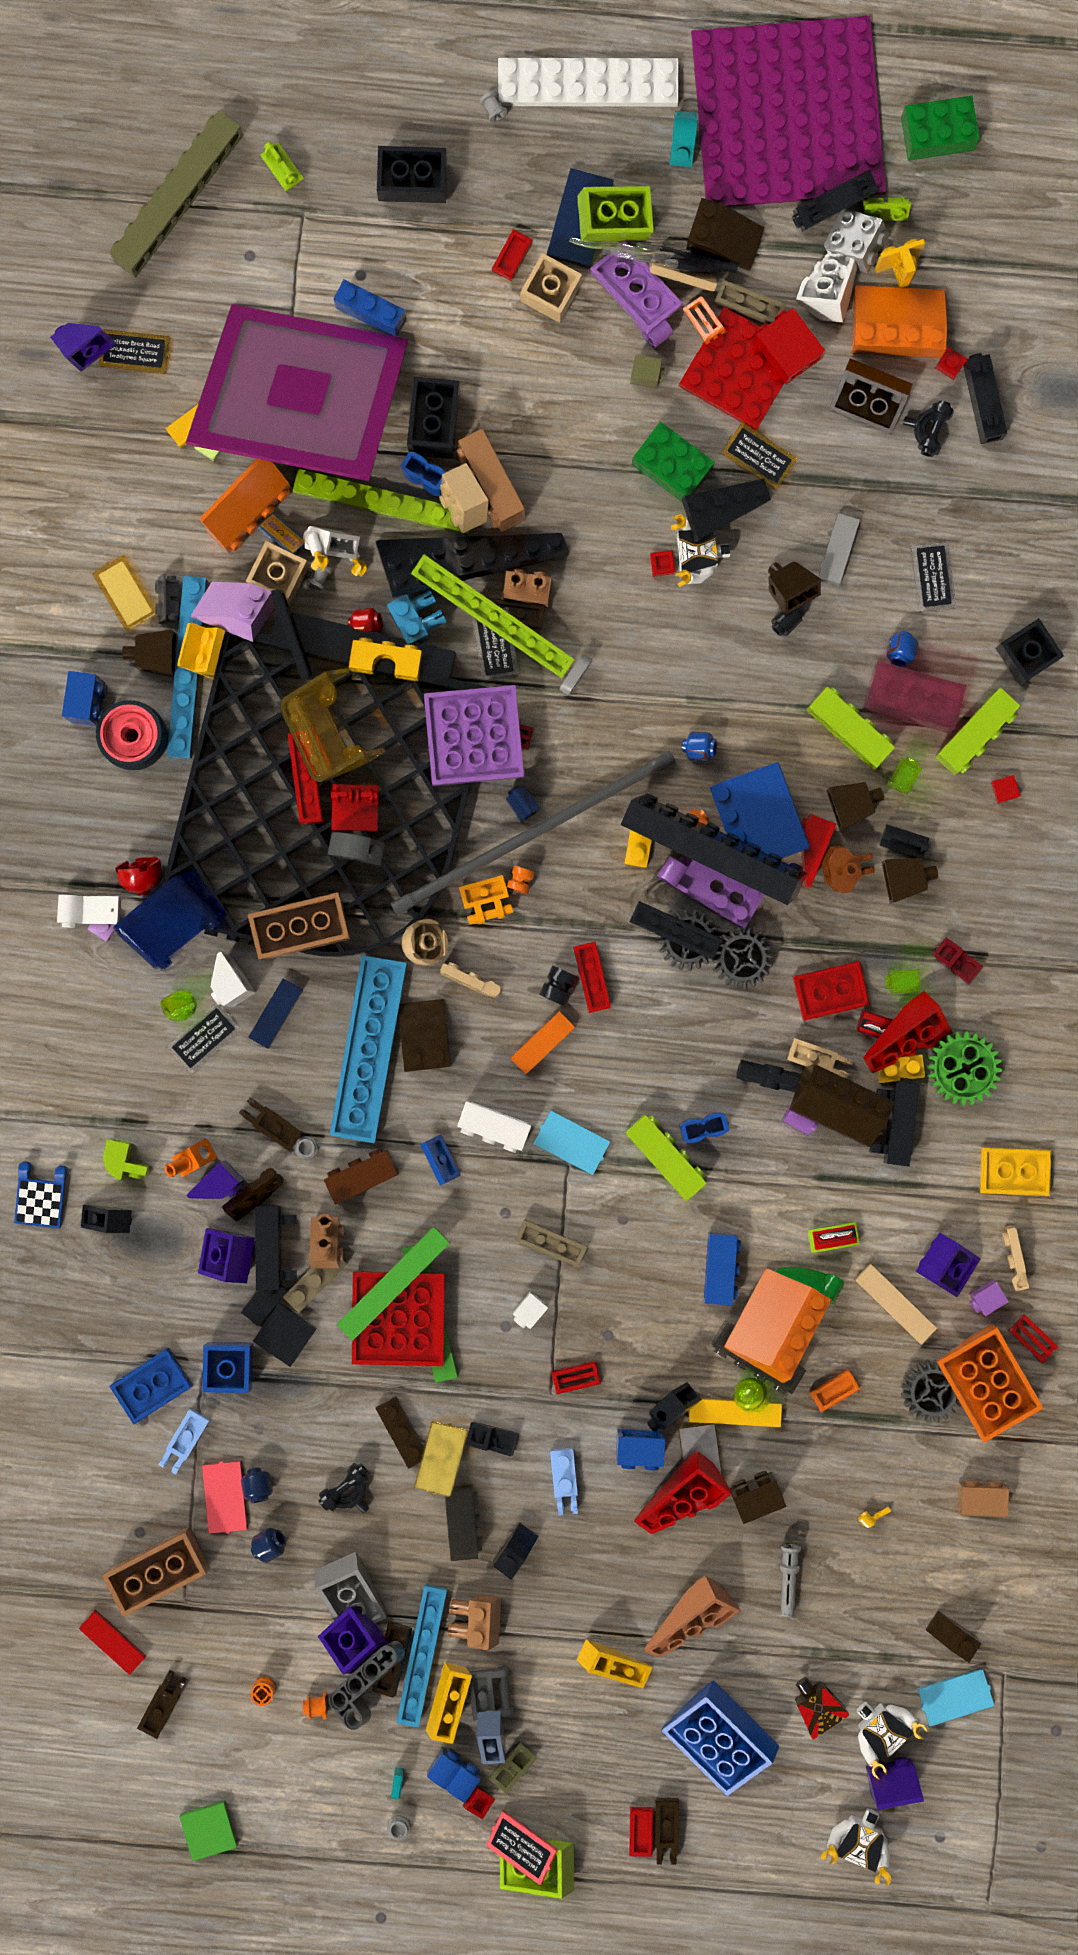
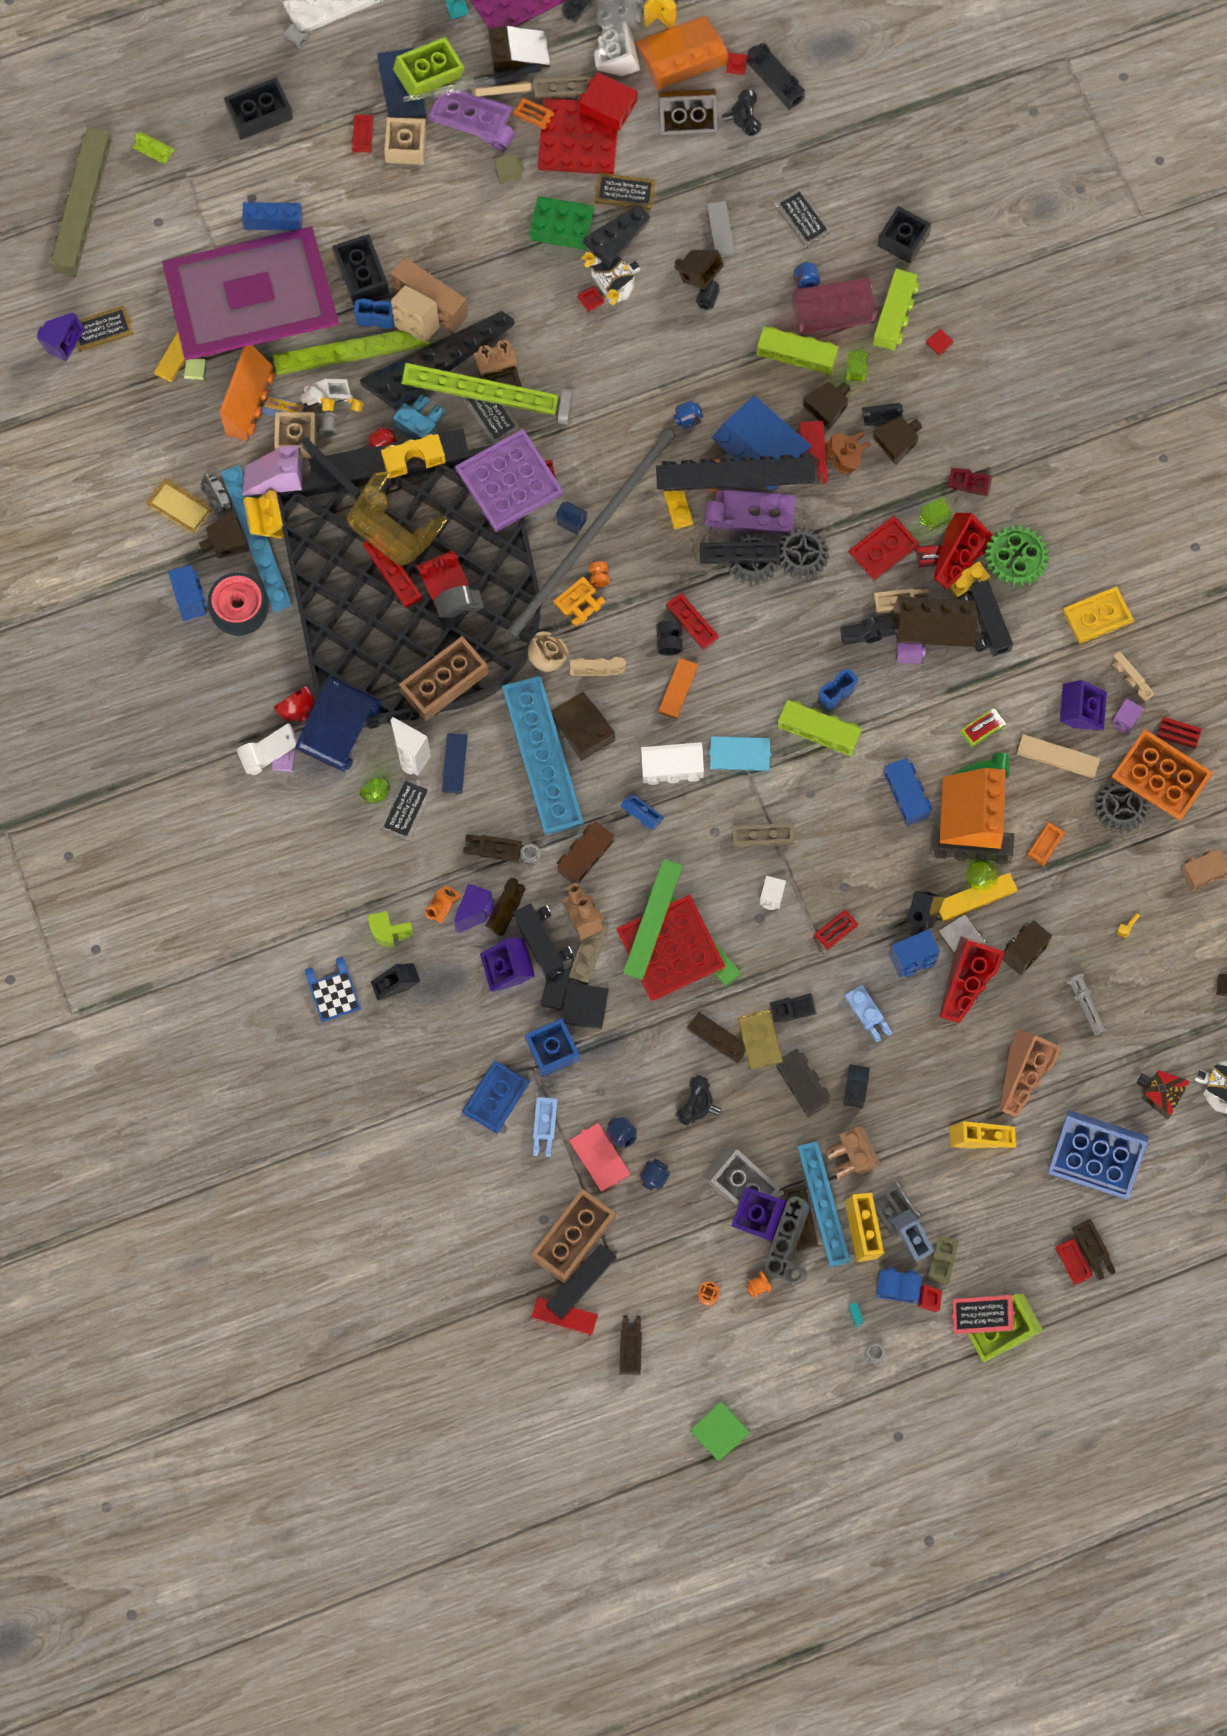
camera: 25 degrees left, 15 degrees down
(143, 1618) = (581, 1281): none -> black tile

